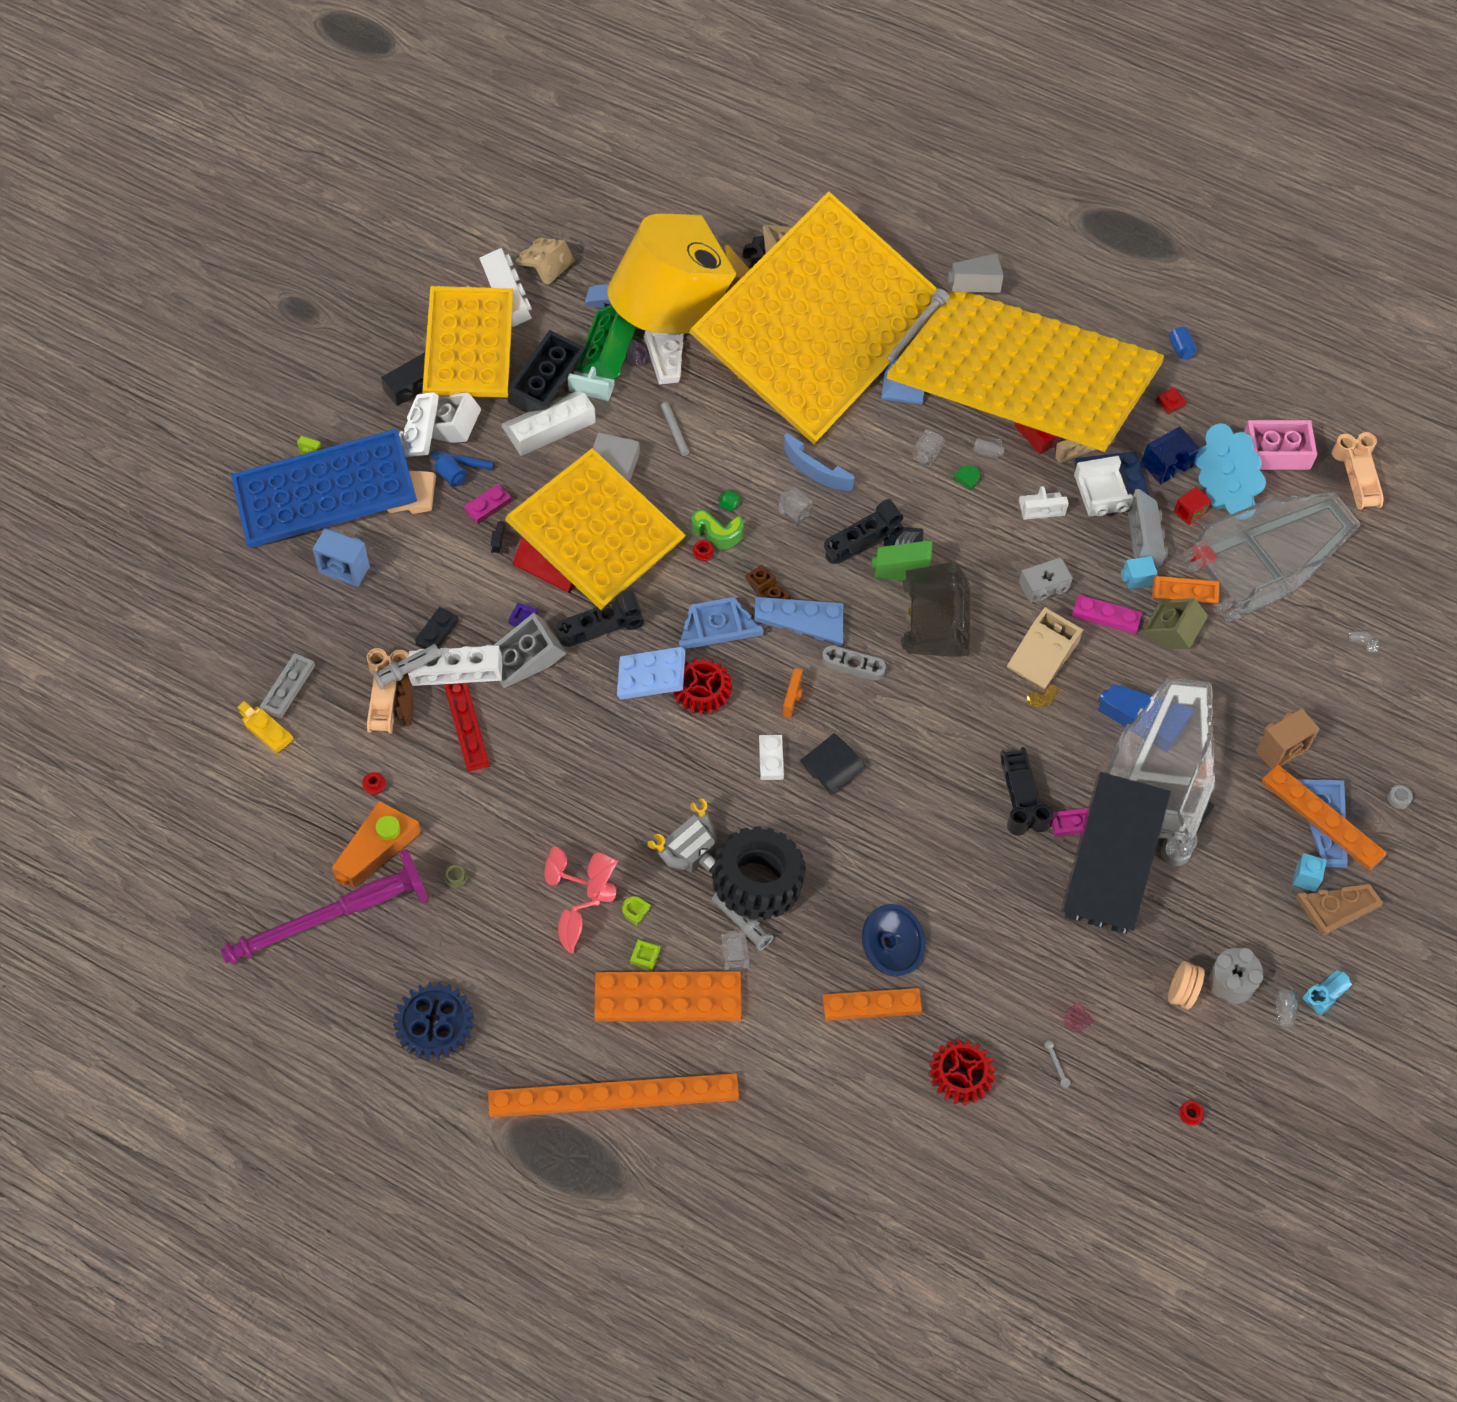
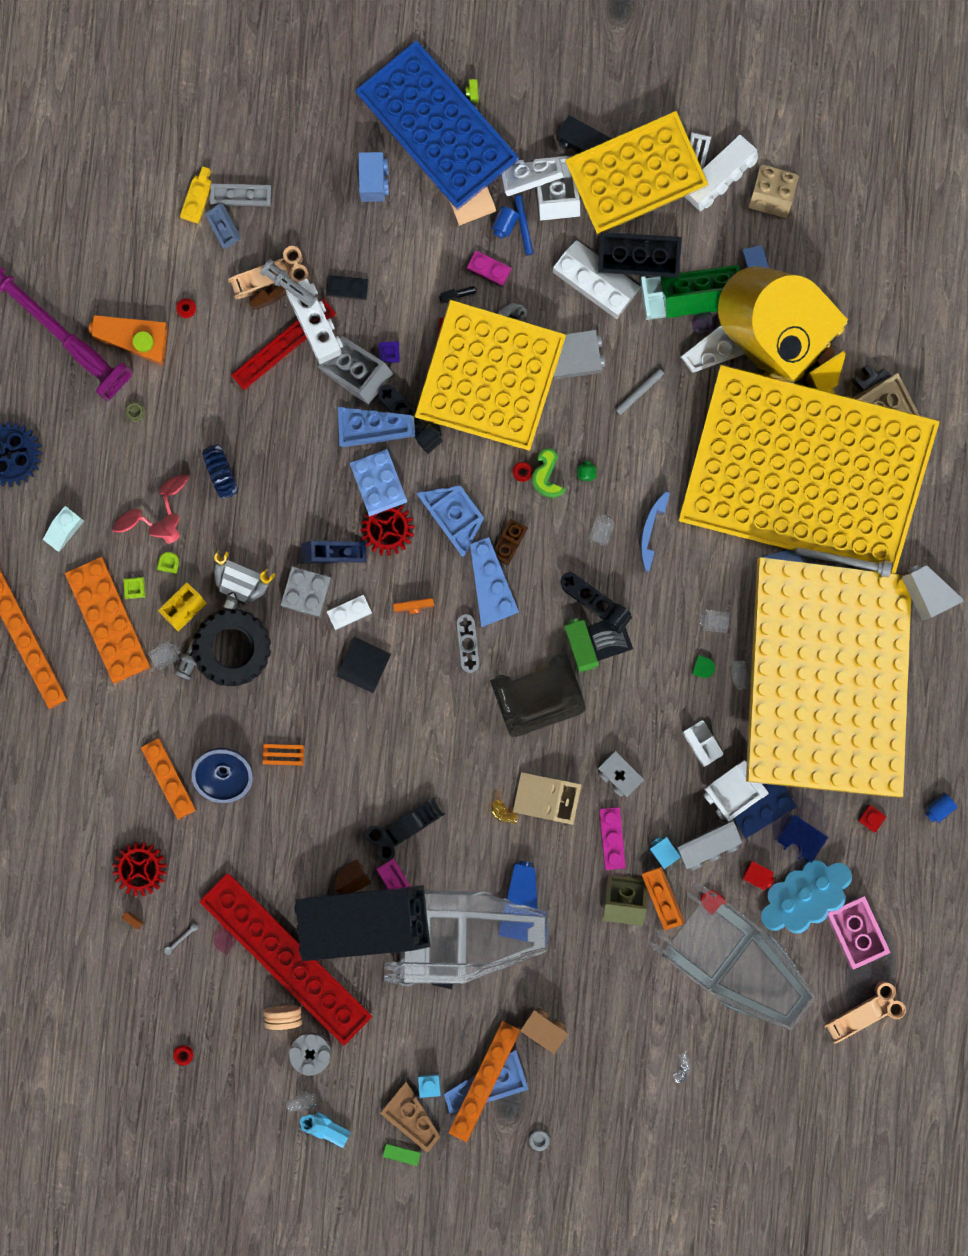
camera: 70 degrees right, 25 degrees up
(309, 713) = (223, 226): none -> sand blue plate
(544, 998) = (62, 528): none -> light aqua slope
(564, 811) = (220, 471): none -> dark blue gear
(589, 660) = (367, 427): none -> medium blue wing
(690, 908) = (182, 606): none -> yellow brick
(701, 746) = (333, 552): none -> dark blue slope
(732, 784) = (306, 592): none -> light grey brick
(901, 862) = (274, 754): none -> orange tile
(1018, 1102) = (133, 920): none -> dark orange tile
(1055, 861) = (351, 878): none -> reddish brown brick
(1119, 962) = (280, 956): none -> red plate
(1375, 933) = (401, 1154): none -> bright green piece

